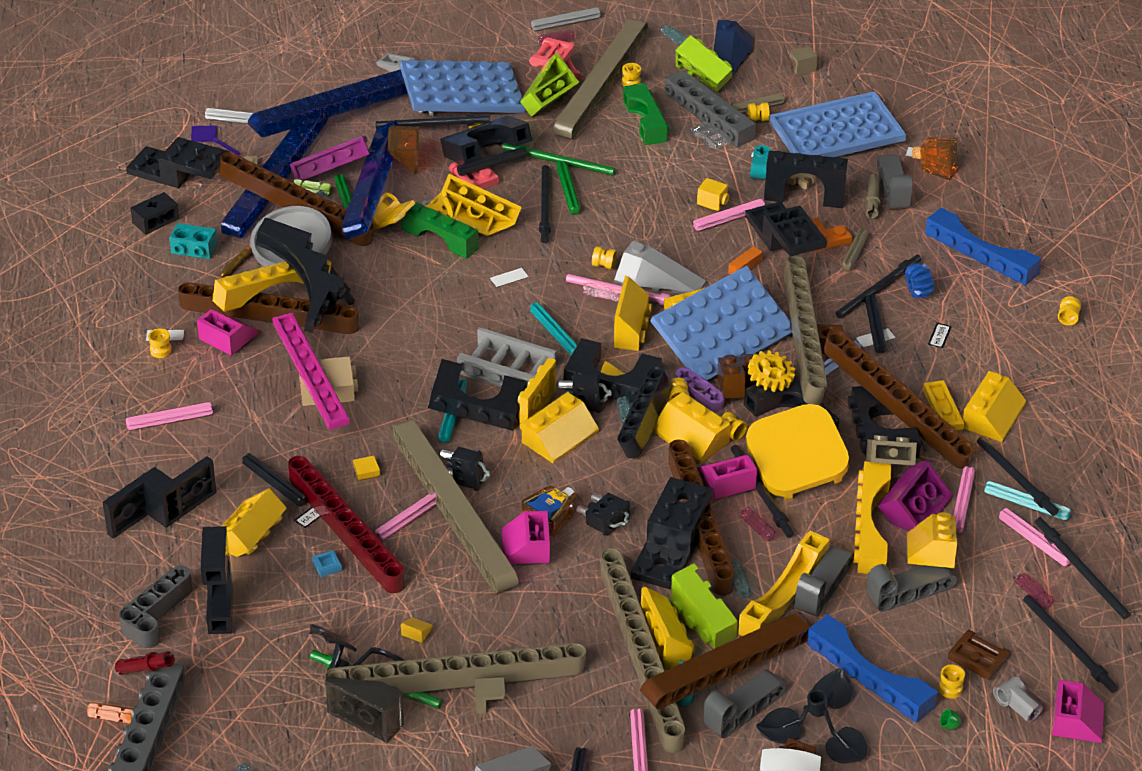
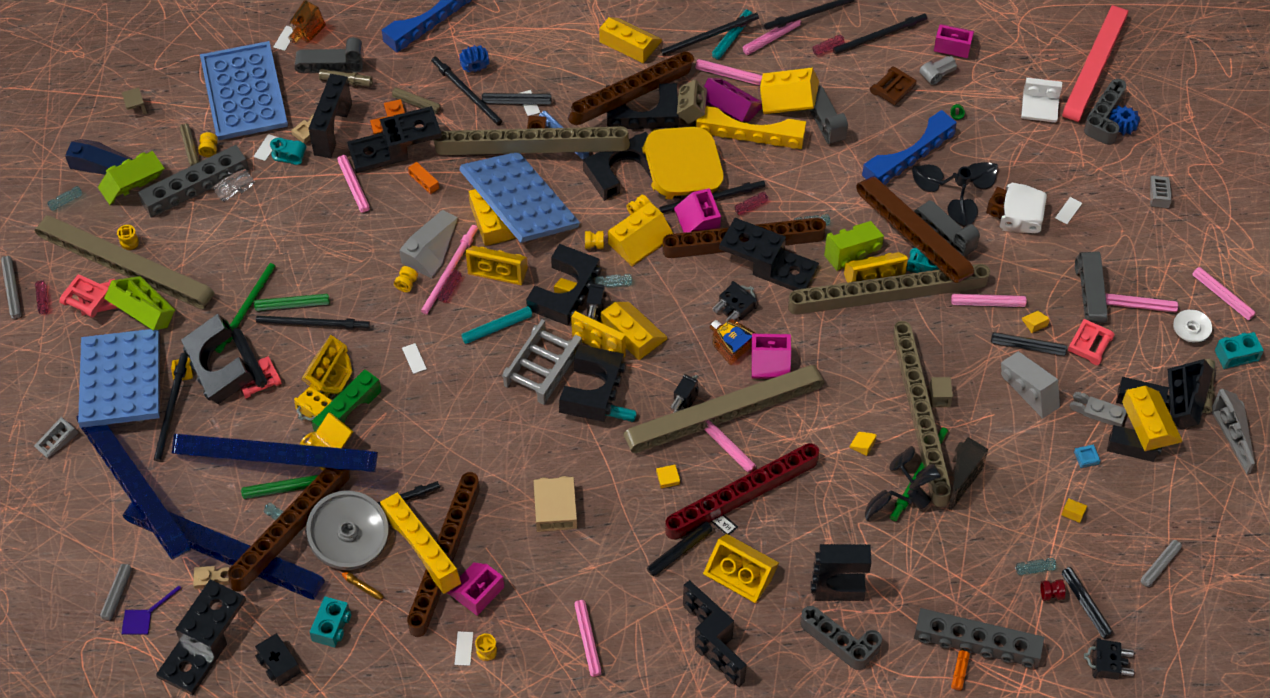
camera: 85 degrees left, 15 degrees up
(151, 662) = (931, 615): dark red pin -> none
(311, 266) = (446, 496): black arch -> none
(311, 371) = (553, 510): dark pink tile -> none
(314, 186) = (253, 517): lime axle -> none
(327, 563) = (785, 508): dark azure tile -> none
(330, 158) = (228, 492): magenta fence -> none
(404, 146) = (219, 423): clear orange slope -> none
(640, 101) = (170, 233): green arch -> none
(644, 412) = (630, 268): black beam -> none
(710, 397) = (589, 219): medium lavender beam -> none
(712, 194) = (330, 189): yellow brick -> none
(734, 376) = (582, 195): reddish brown brick -> none
(771, 371) = (596, 164): yellow gear -> none
(781, 595) = (801, 173): yellow arch -> none
(816, 589) = (820, 167): dark grey beam -> none
(939, 335) = (531, 61): sticker -> none
(943, 403) = (621, 68): yellow plate -> none
(951, 681) = (922, 104): yellow wheel -> none

